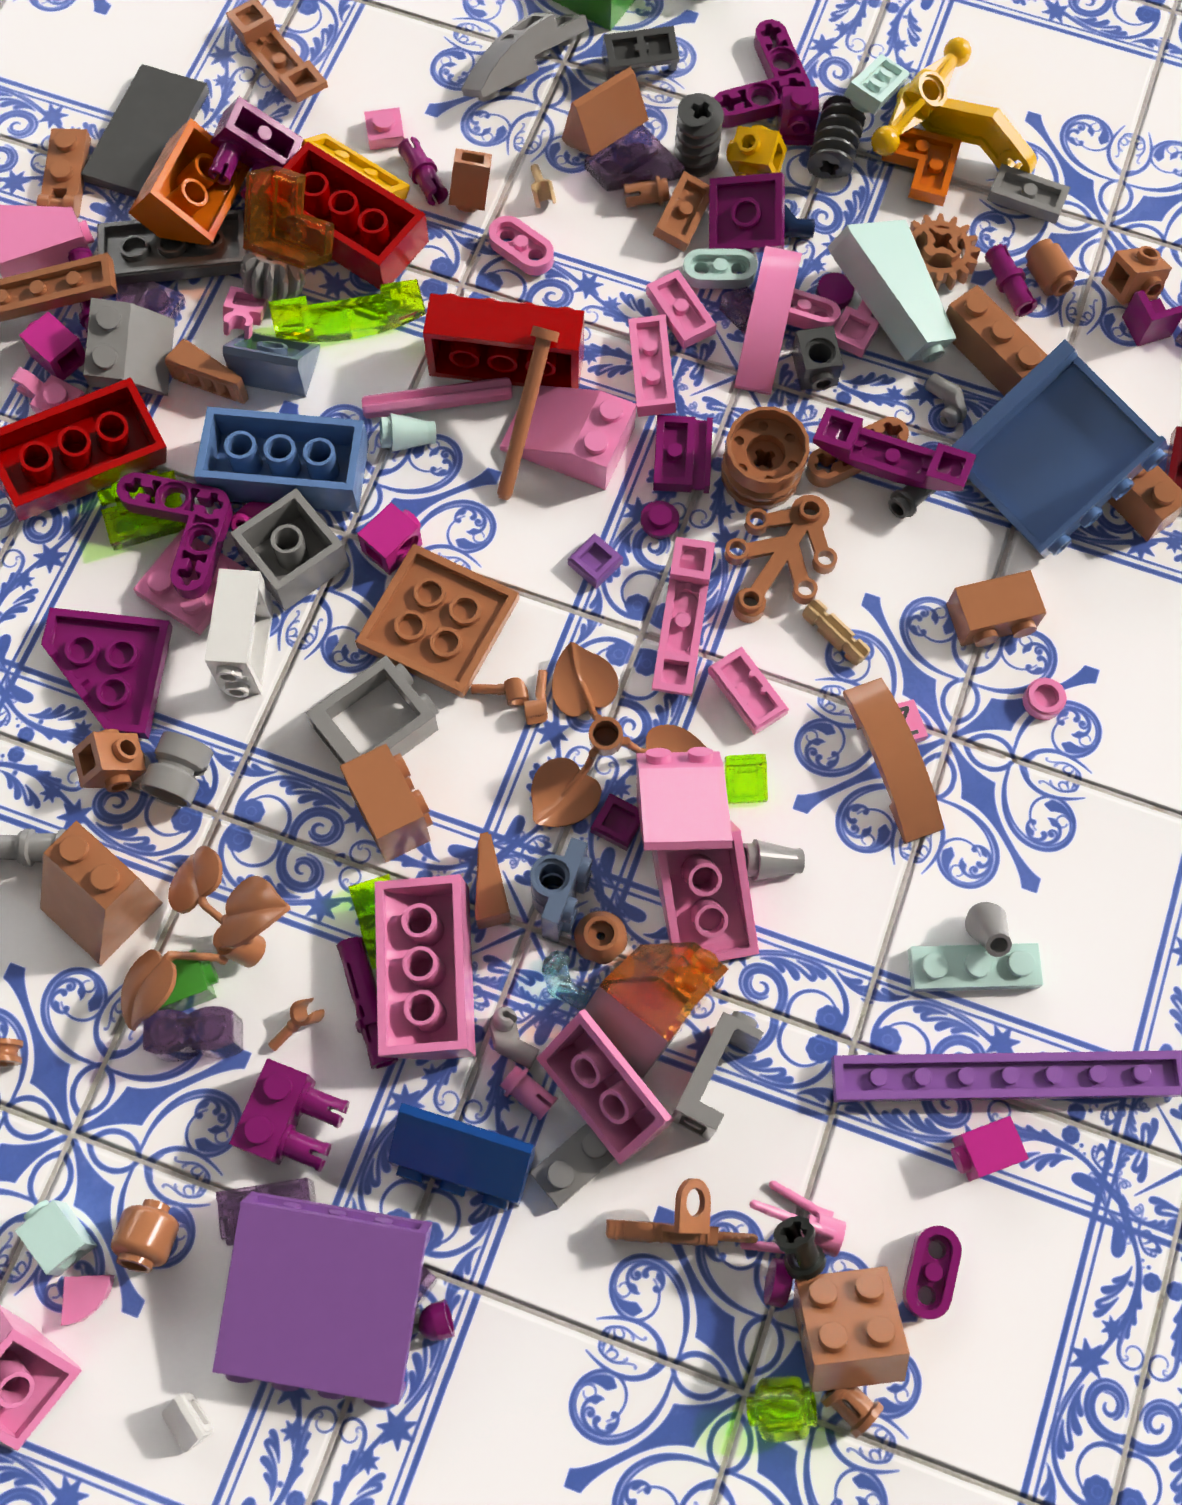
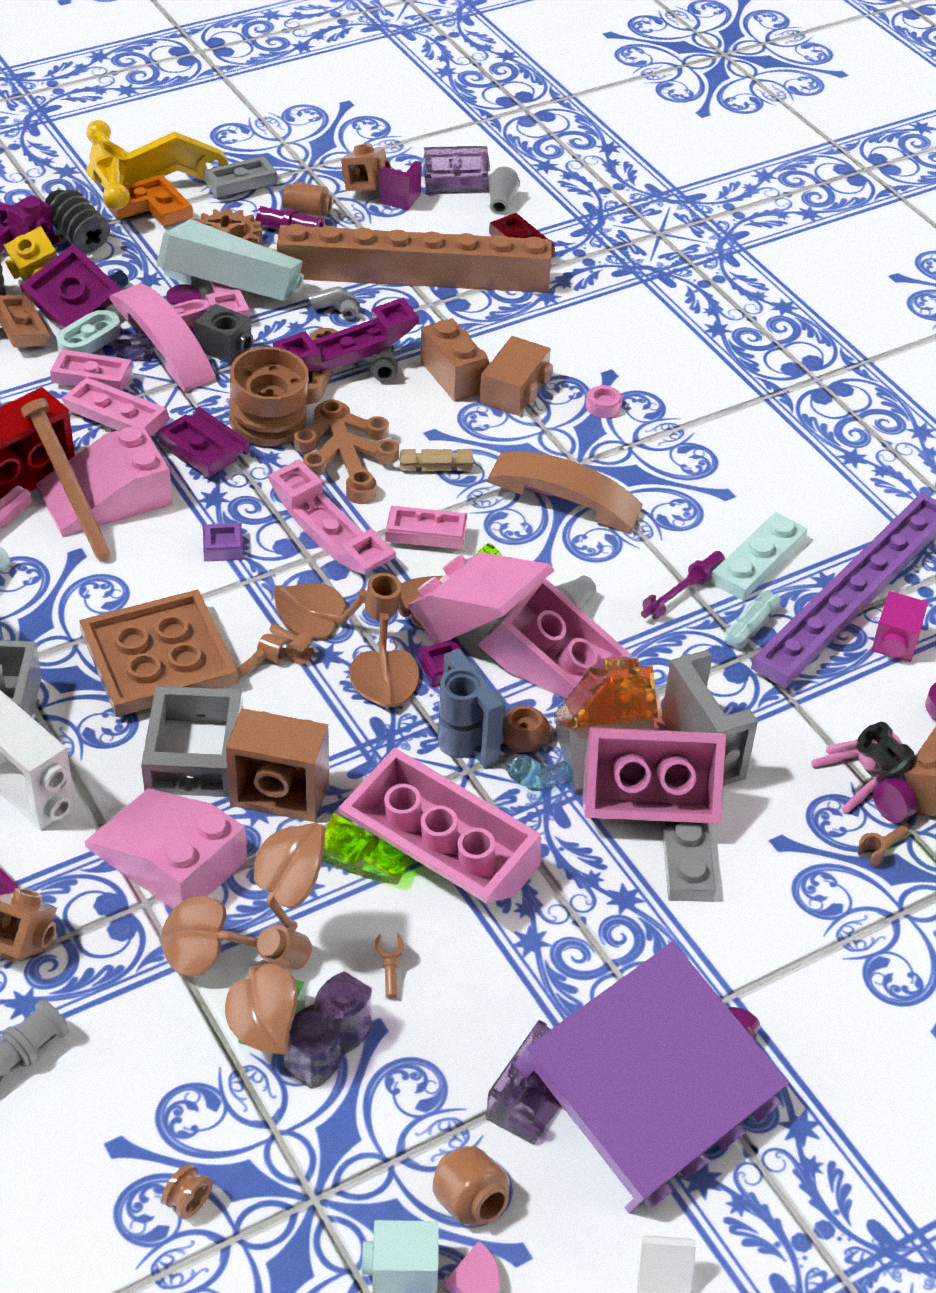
camera: 50 degrees left, 25 degrees down
(93, 893) = (126, 1004): nougat slope -> none
(178, 764) = (80, 888): light grey wheel -> none
(267, 789) = (172, 845): none -> bright pink slope
(274, 1112) = (458, 1020): magenta brick -> none
(364, 995) = (474, 916): magenta pin -> none
(390, 537) = (56, 632): dark pink brick -> none
(460, 1157) = (617, 908): blue slope -> none
(491, 900) = (427, 753): nougat slope -> none
(507, 1040) = (554, 838): light grey arm -> none
(528, 1092) = (604, 849): bright pink pin -> none
(659, 519) = (237, 488): magenta plate -> none
(686, 1228) = (809, 824): nougat piece -> none
(731, 1302) = (880, 843): none -> nougat hand
(876, 84) = (69, 176): light aqua plate -> none
(888, 1019) = (752, 619): none -> light aqua axle
(902, 935) = (698, 572): none -> magenta piece
(963, 546) = (452, 358): none -> nougat brick
(989, 927) = (740, 521): light grey cone -> none
(1058, 450) = (449, 264): medium blue panel -> none

